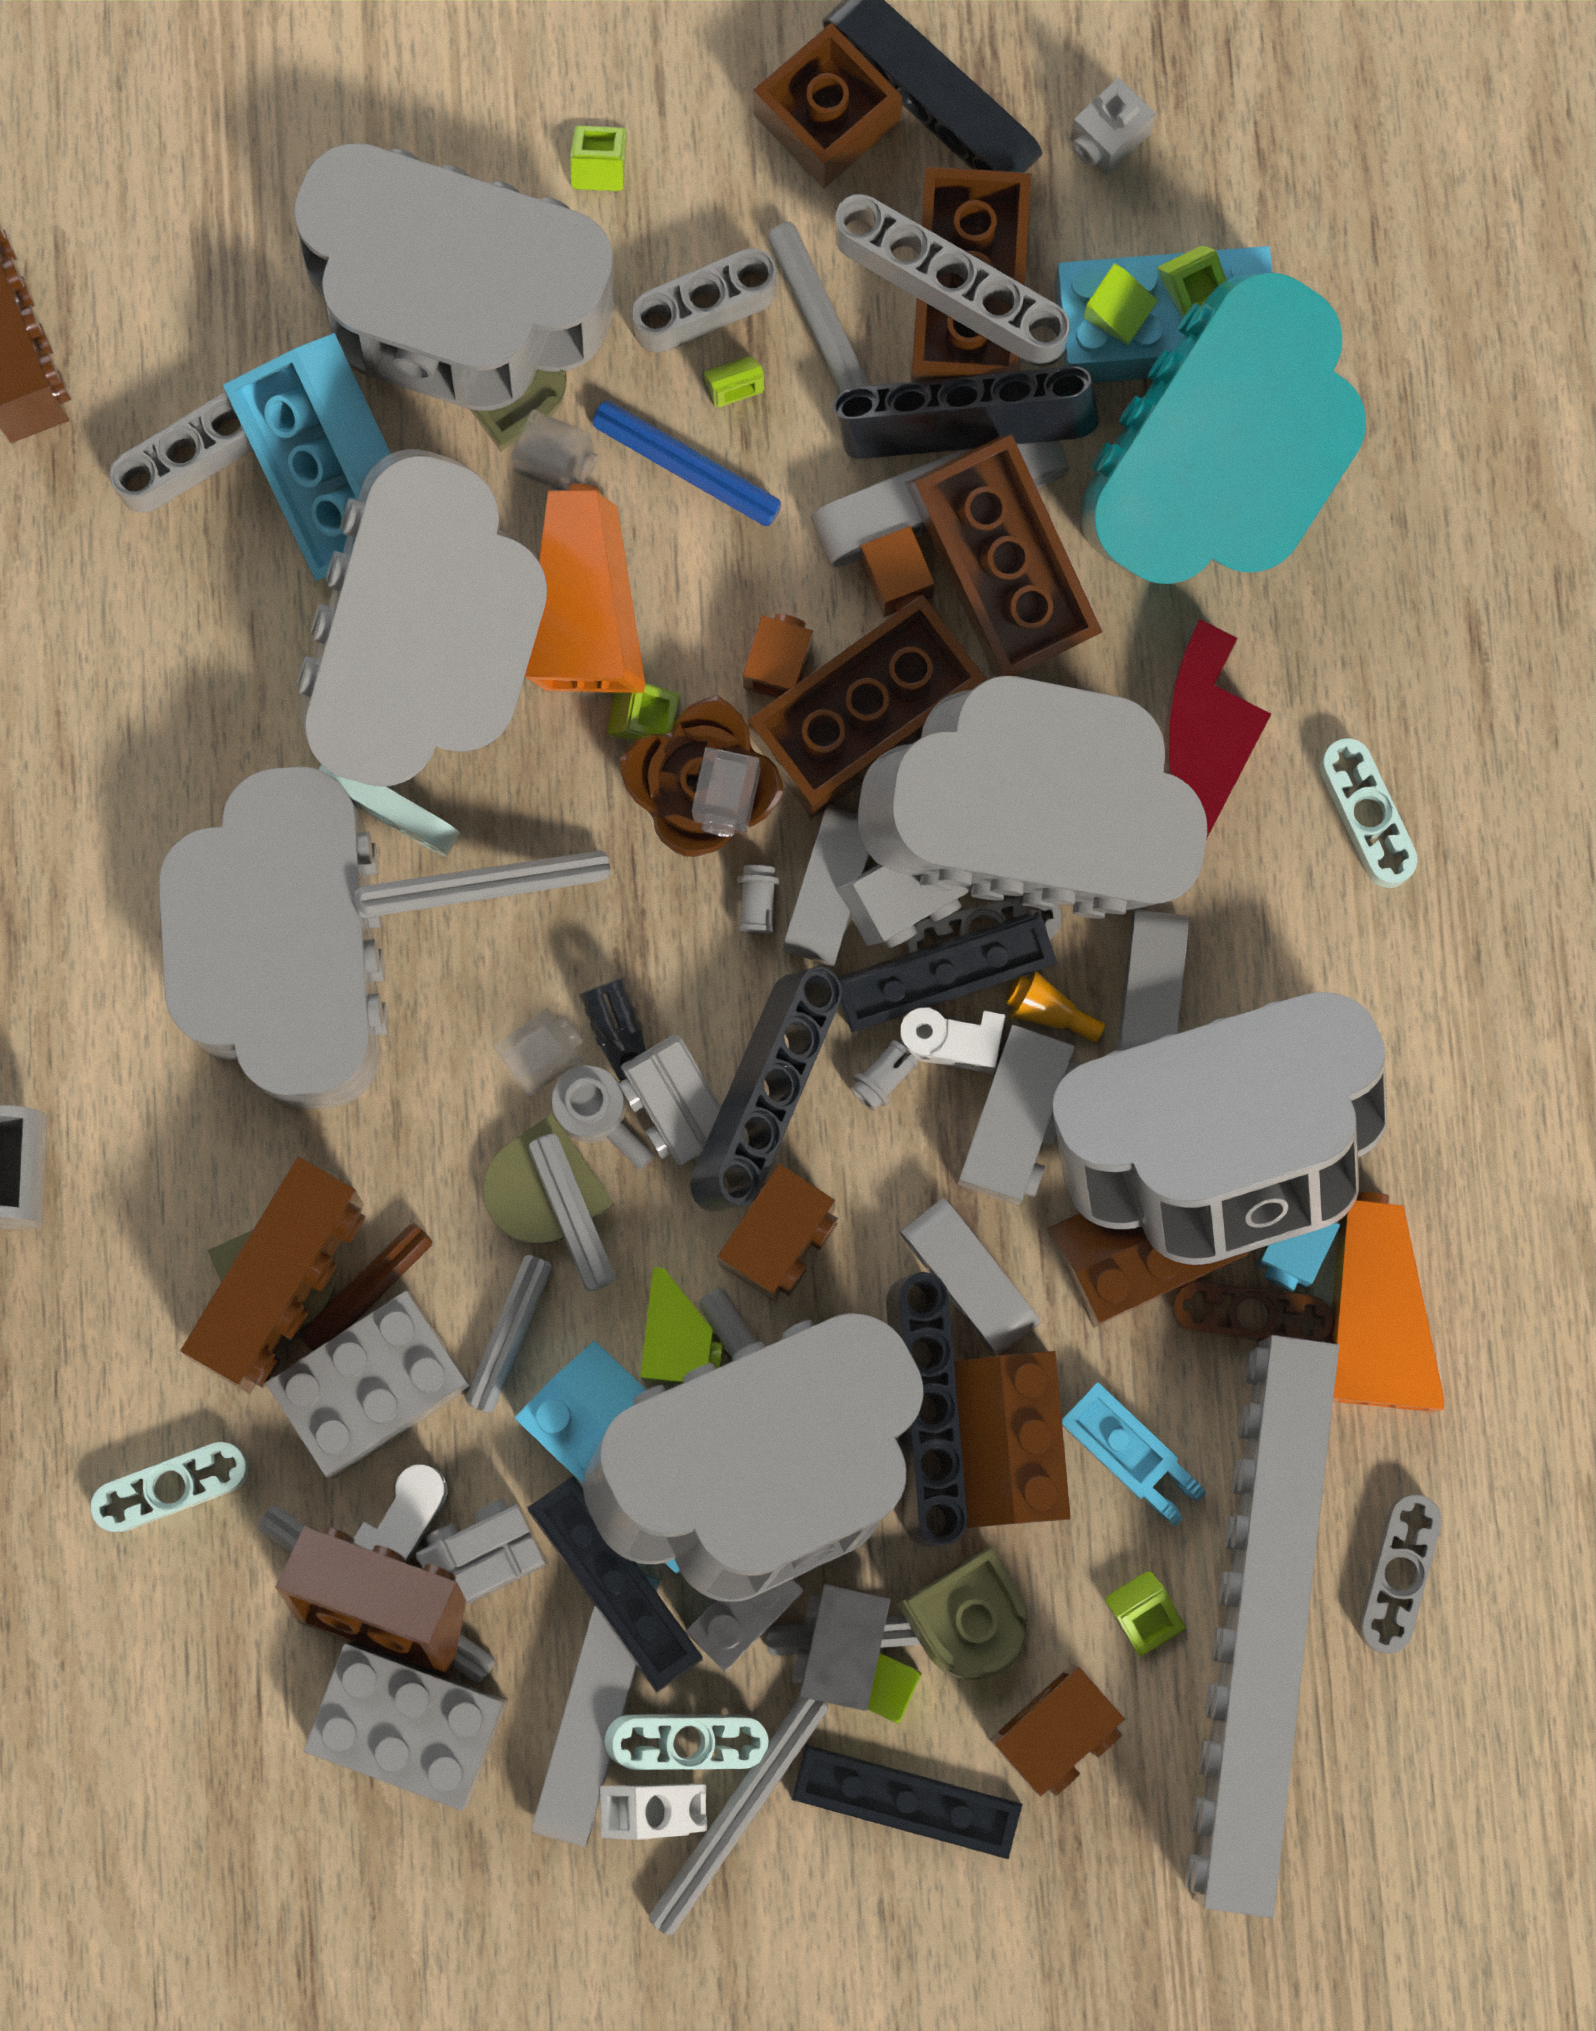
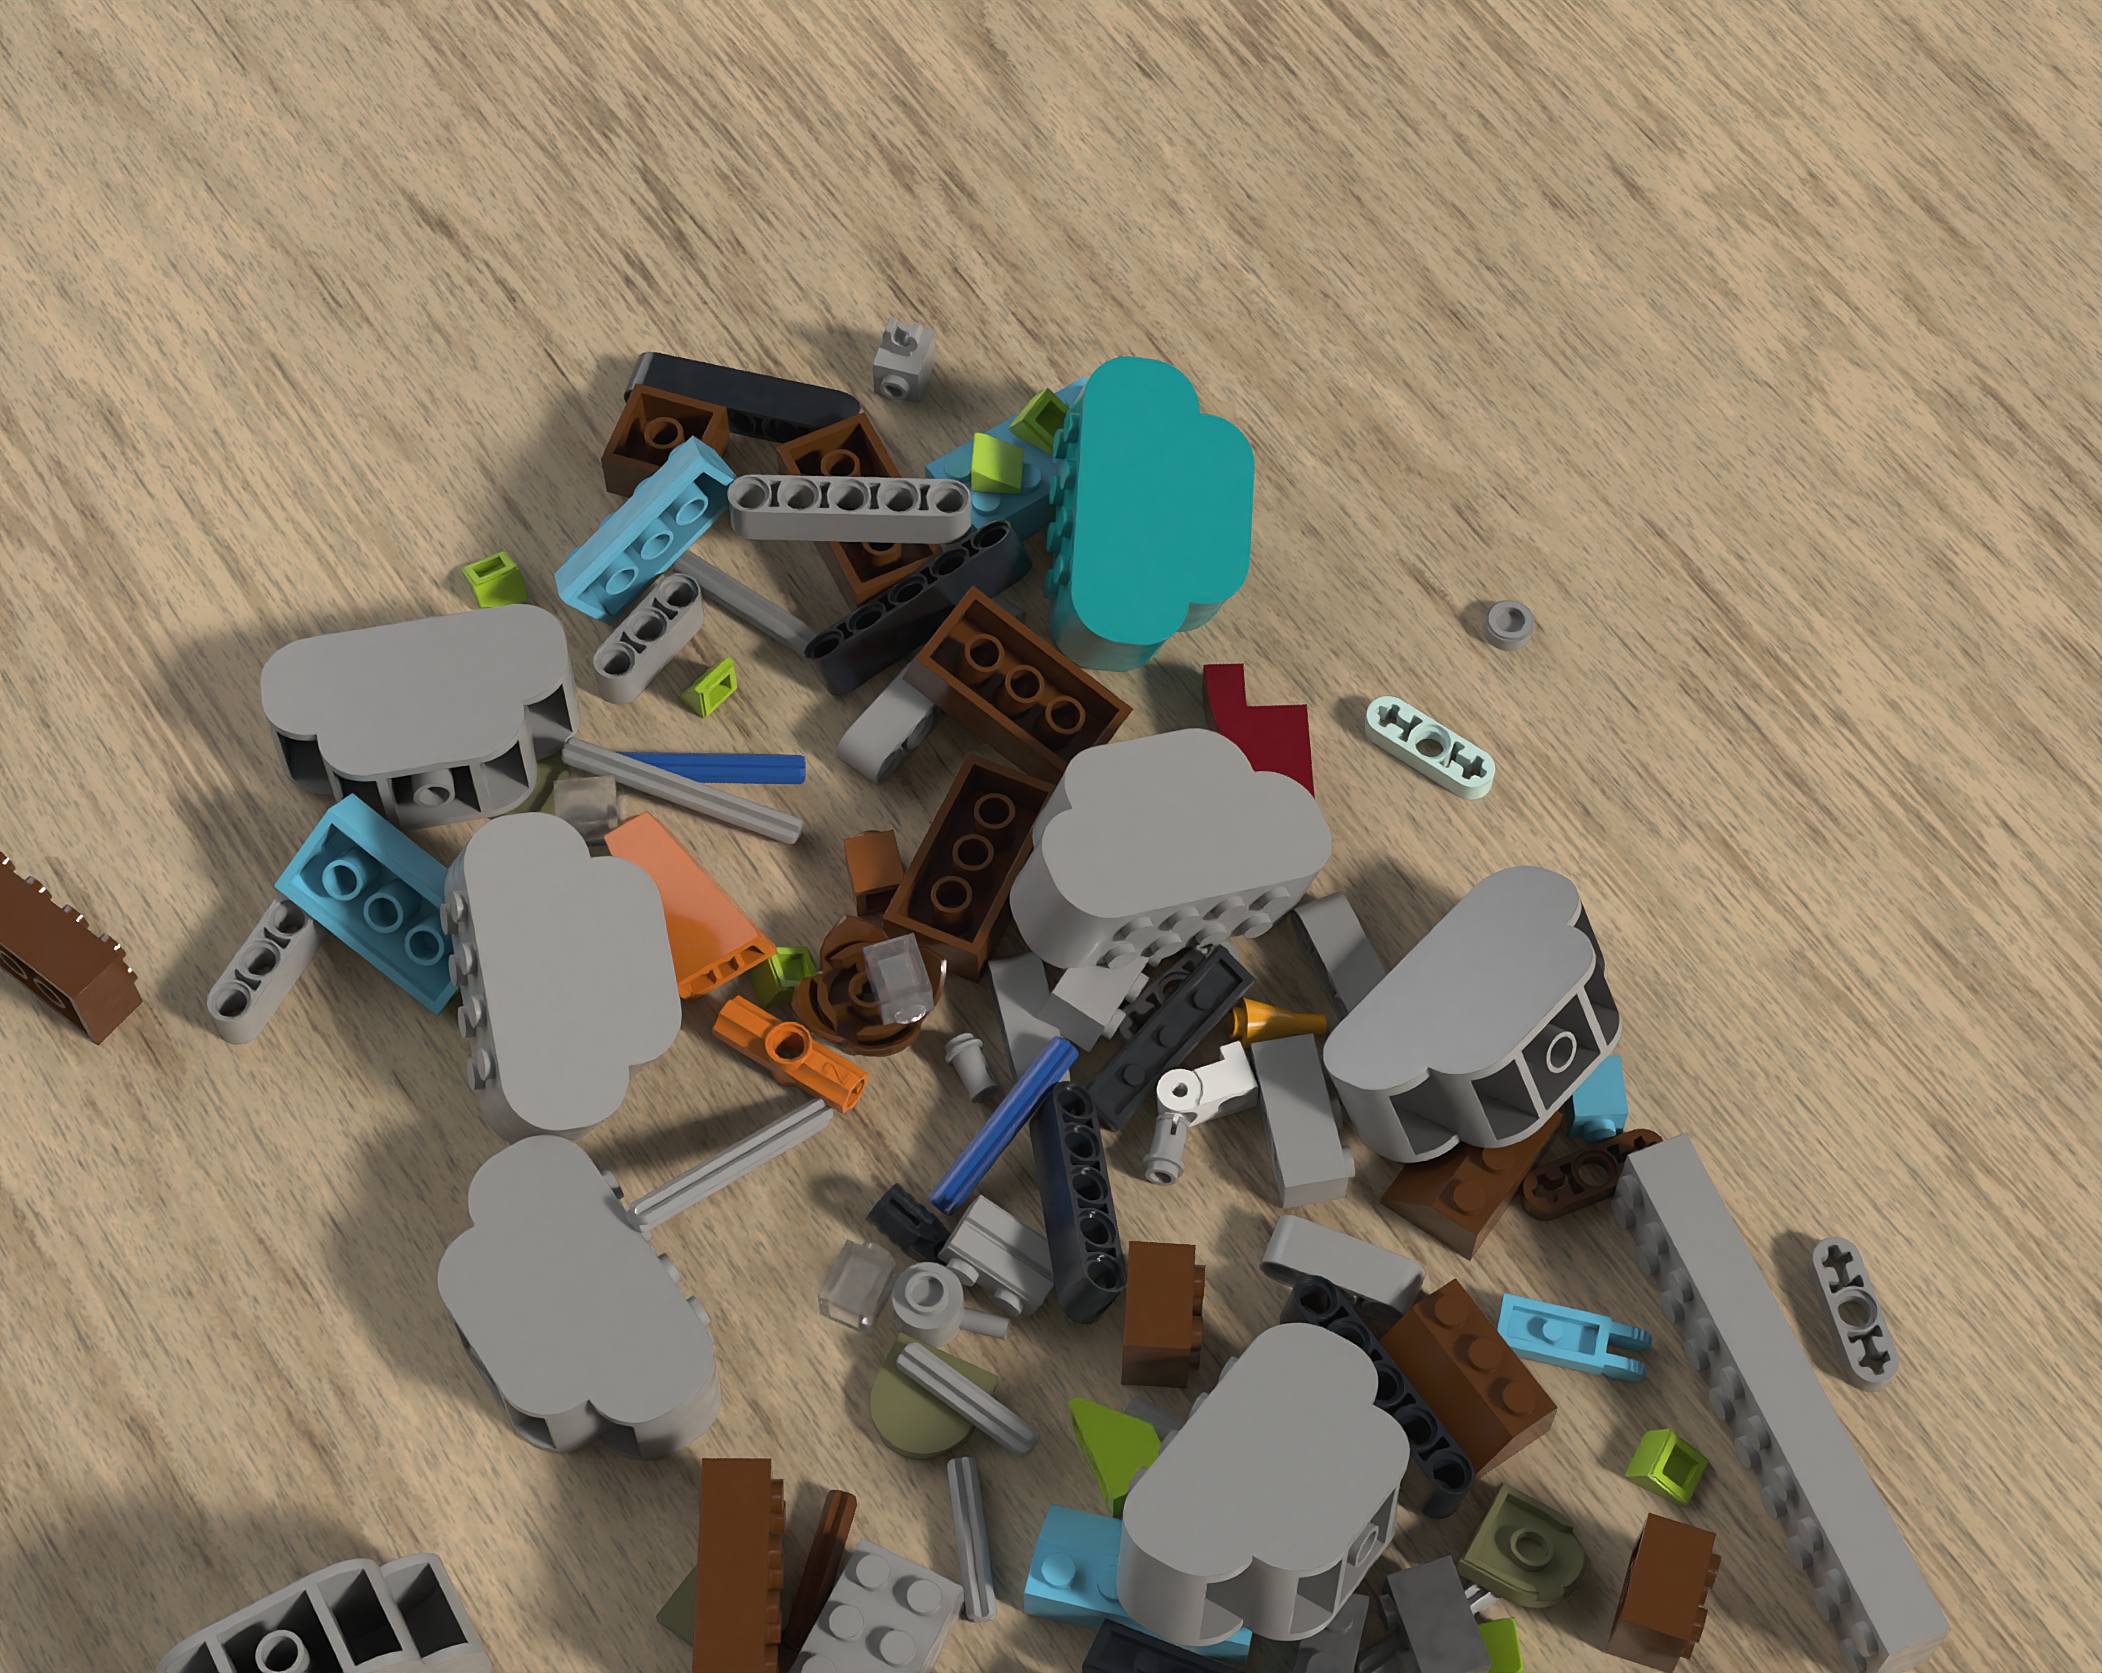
camera: 30 degrees left, 20 degrees down
(400, 814) = (634, 1156): light aqua beam -> none
(614, 826) = (766, 1037): none -> orange piece
(648, 478) = (682, 791): none -> light grey axle
(748, 975) = (1003, 1126): none -> blue axle
(751, 194) = (647, 533): none -> medium azure slope
(896, 570) = (930, 756): dark orange brick -> none
(1381, 1313) = (1687, 1094): orange slope -> none
(1525, 727) = (1509, 625): none -> light grey tile

